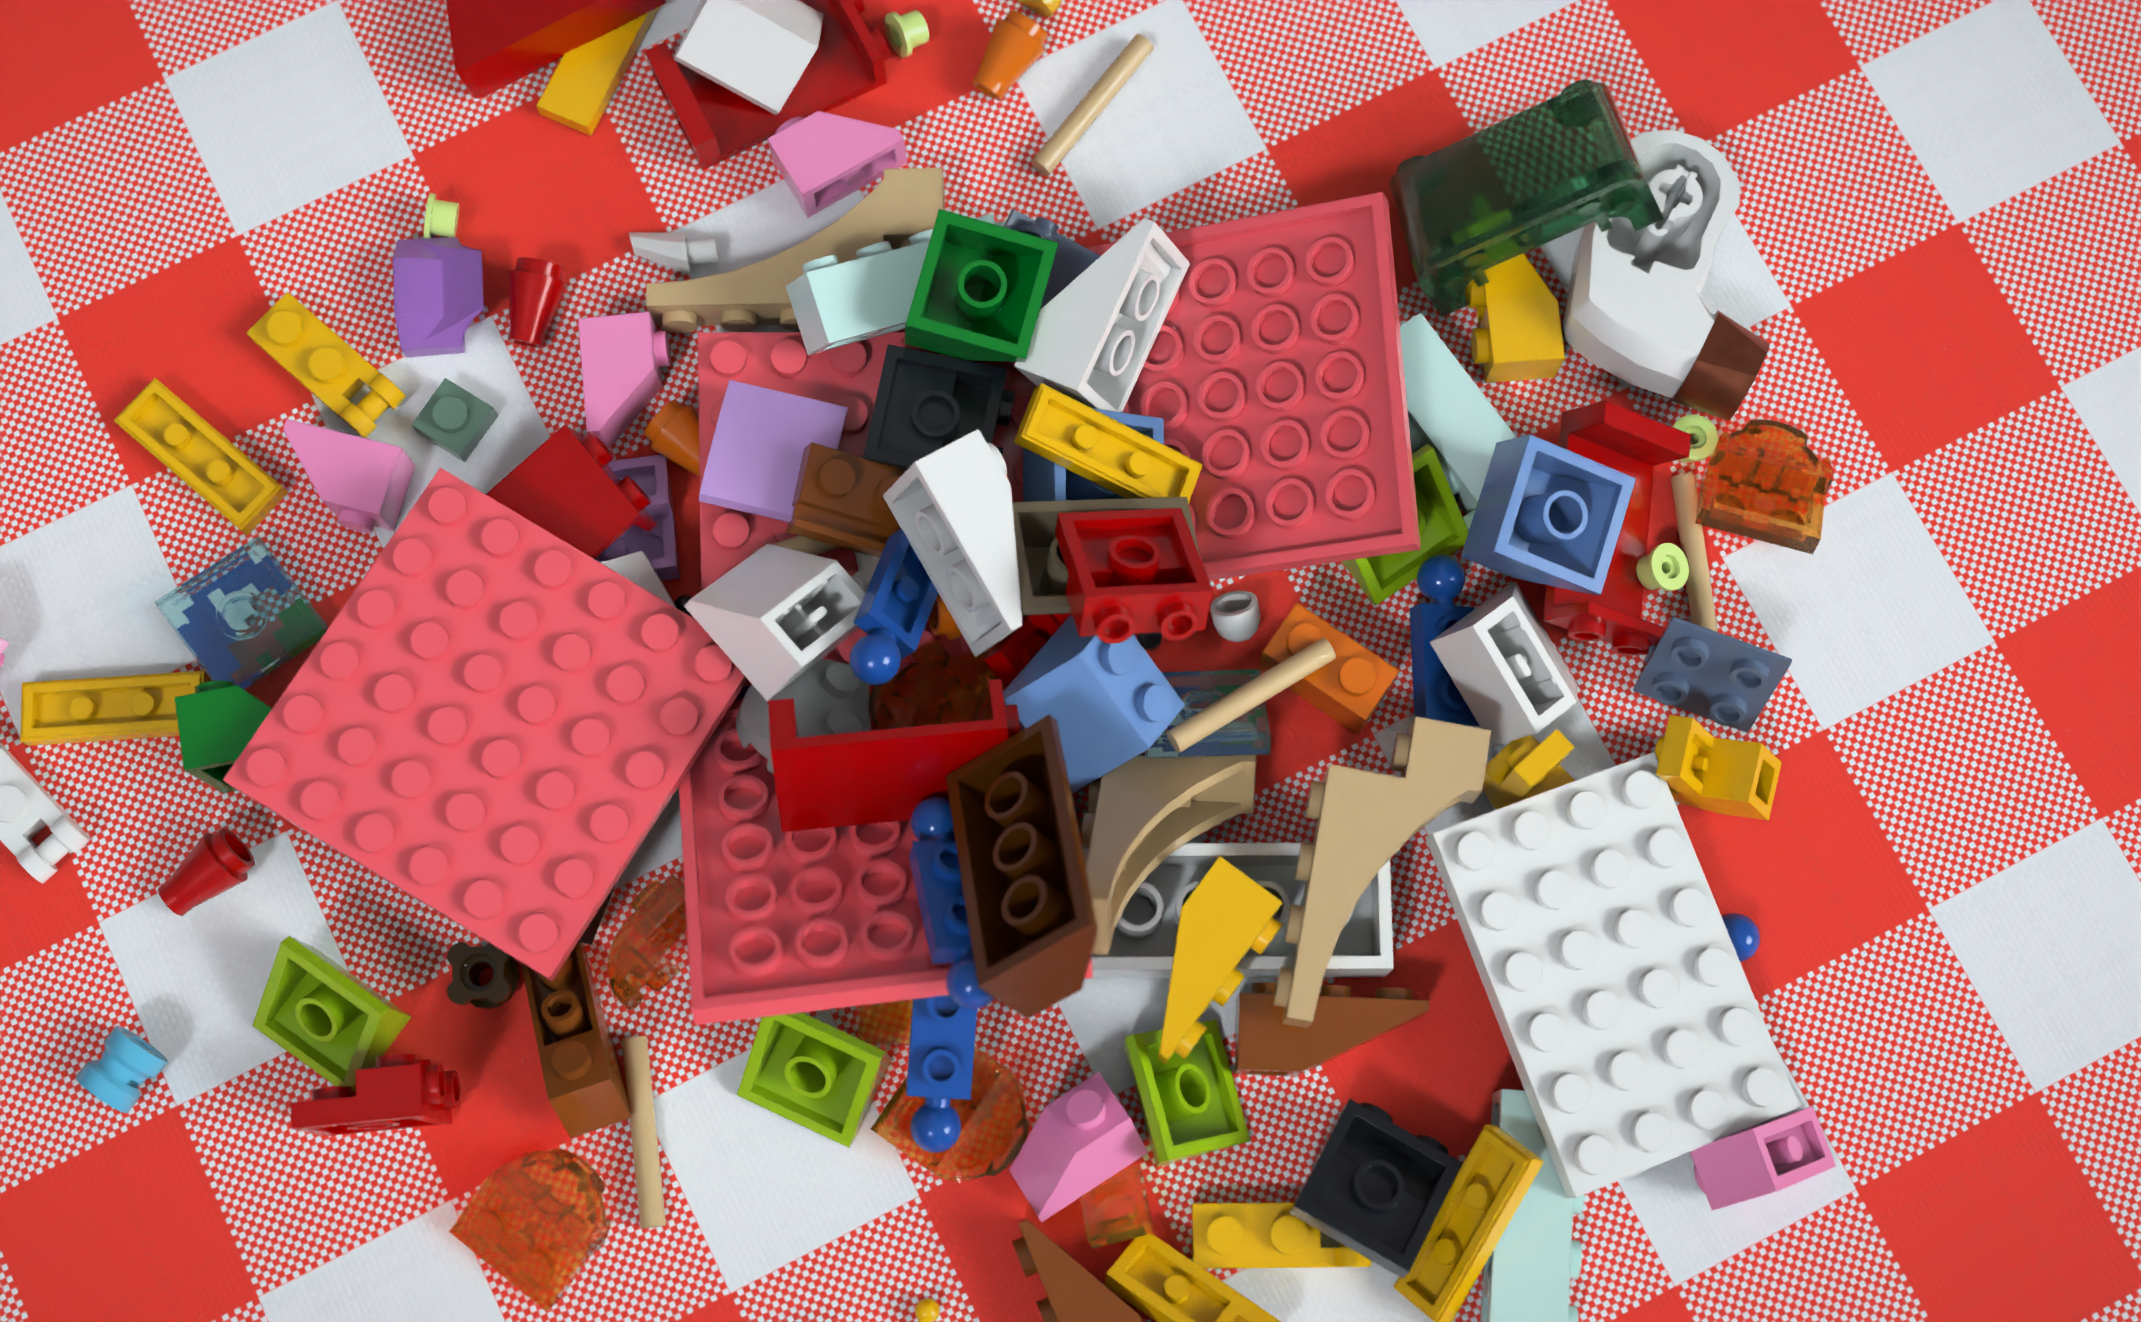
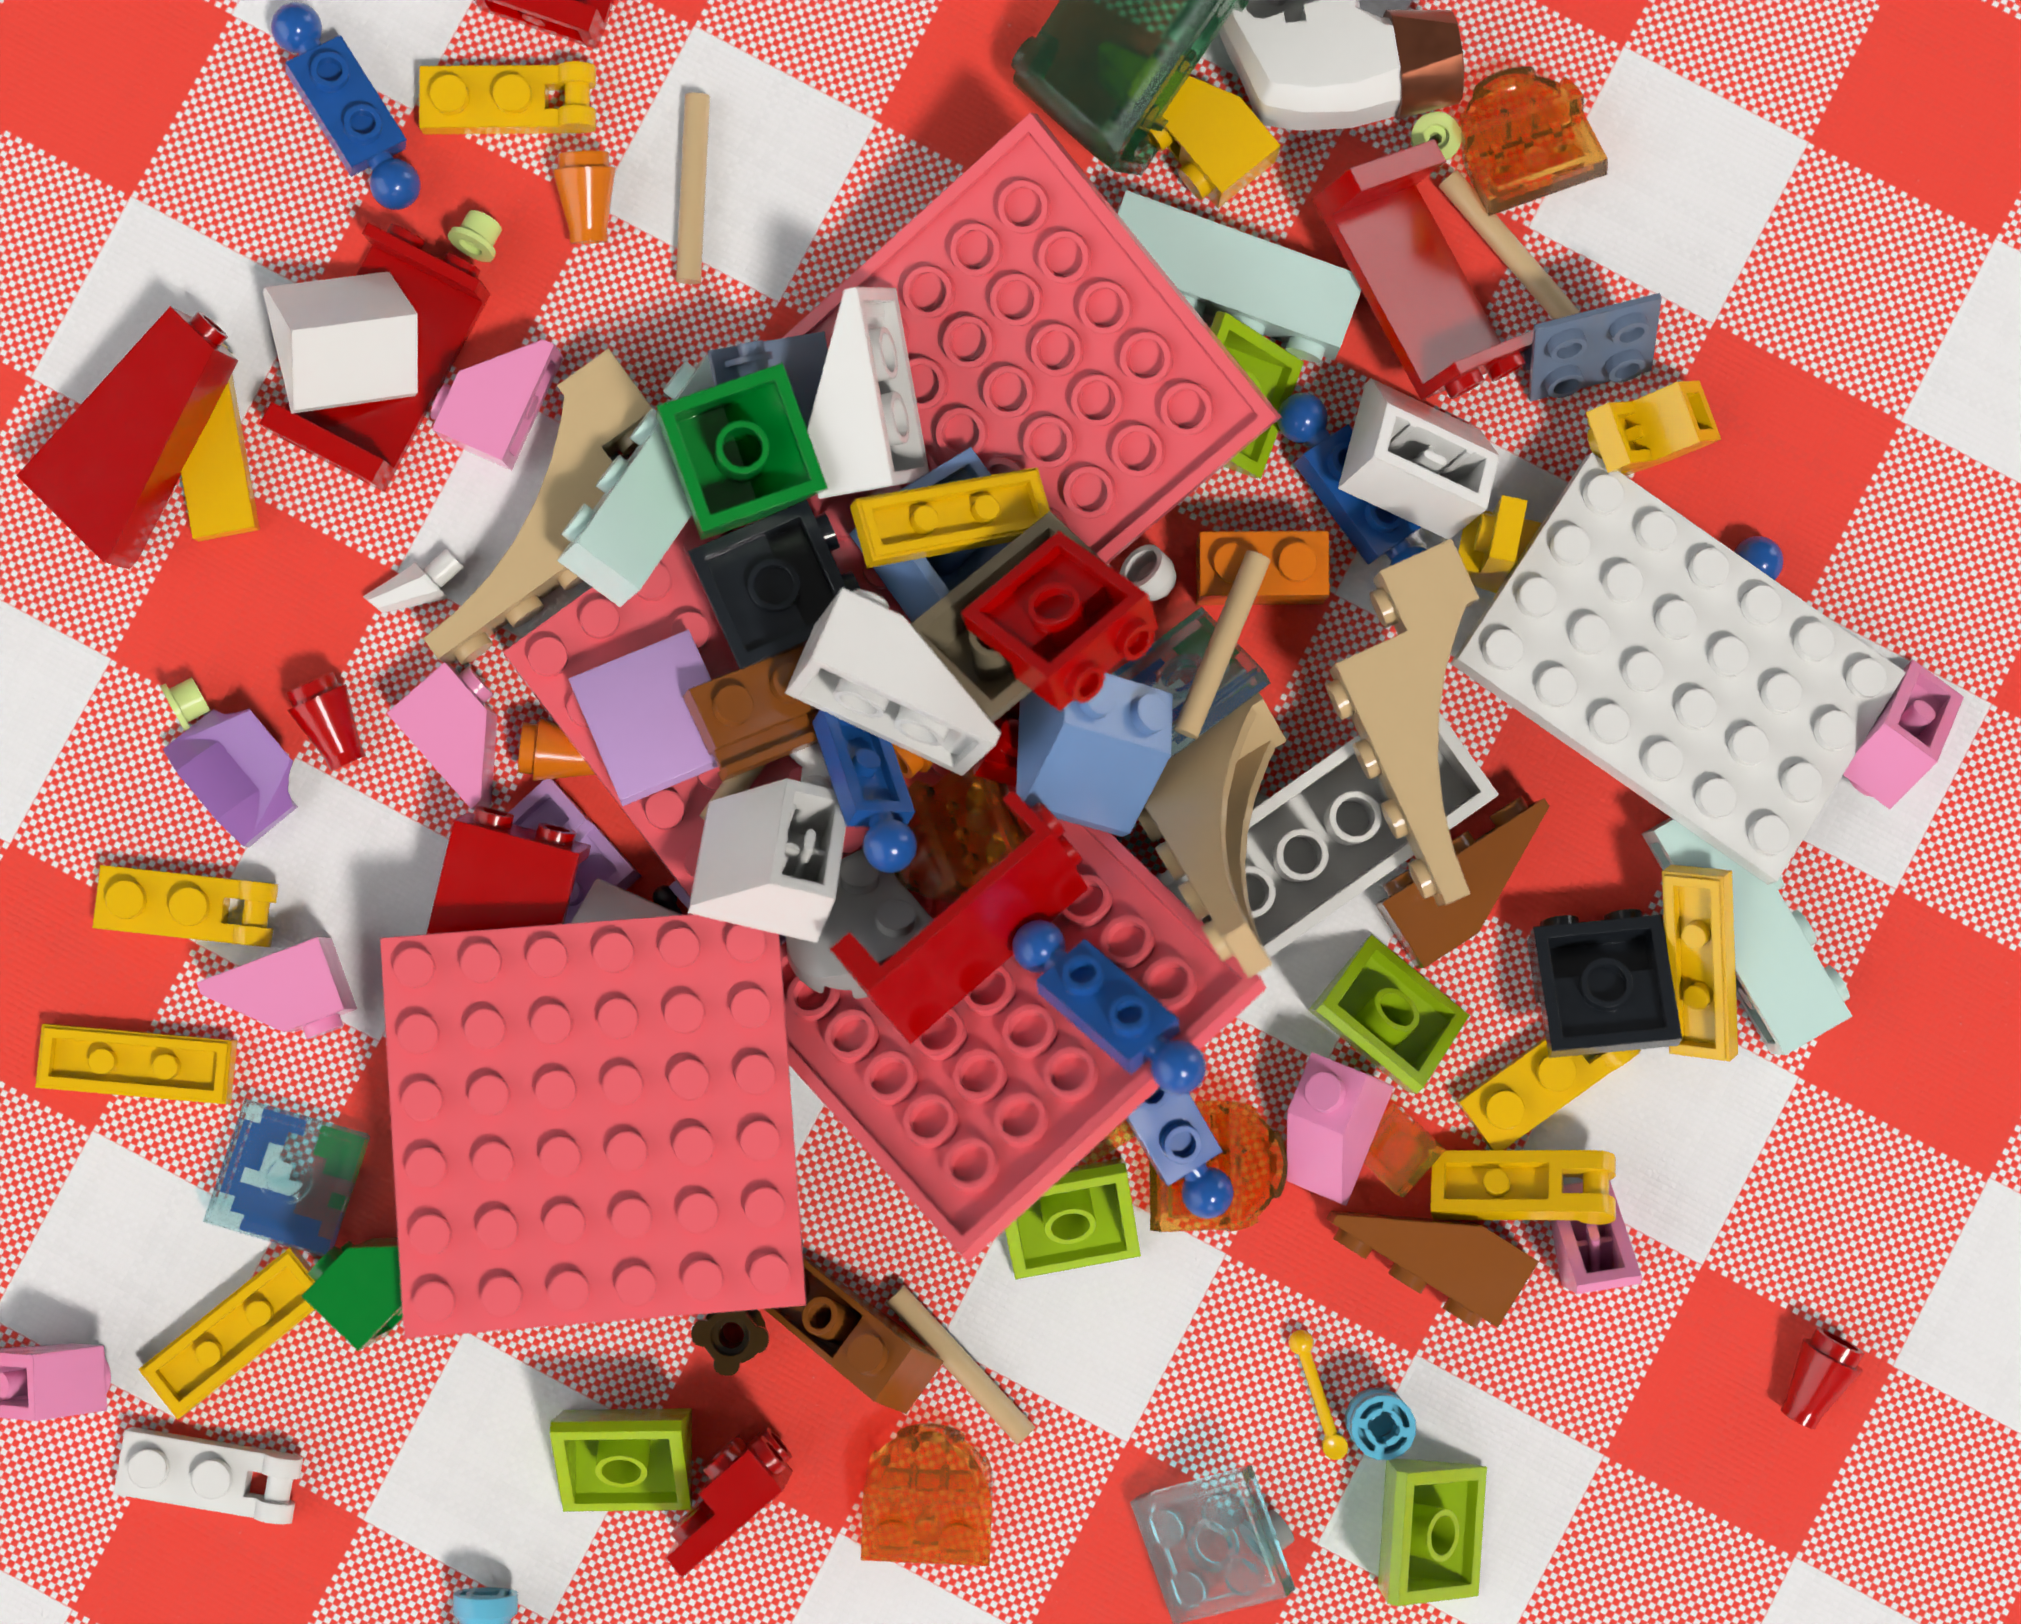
camera: 30 degrees left, 10 degrees up
(208, 870) = (427, 1413): red cone -> none
(454, 420) = (337, 874): sand green plate -> none
(640, 943) = (855, 1225): clear orange slope -> none
(1023, 870) = (1153, 943): reddish brown slope -> none
(1213, 935) = (1335, 877): yellow slope -> none
(1548, 515) = (1367, 307): medium blue slope -> none
(1663, 568) = (1487, 275): yellowish green piece -> none

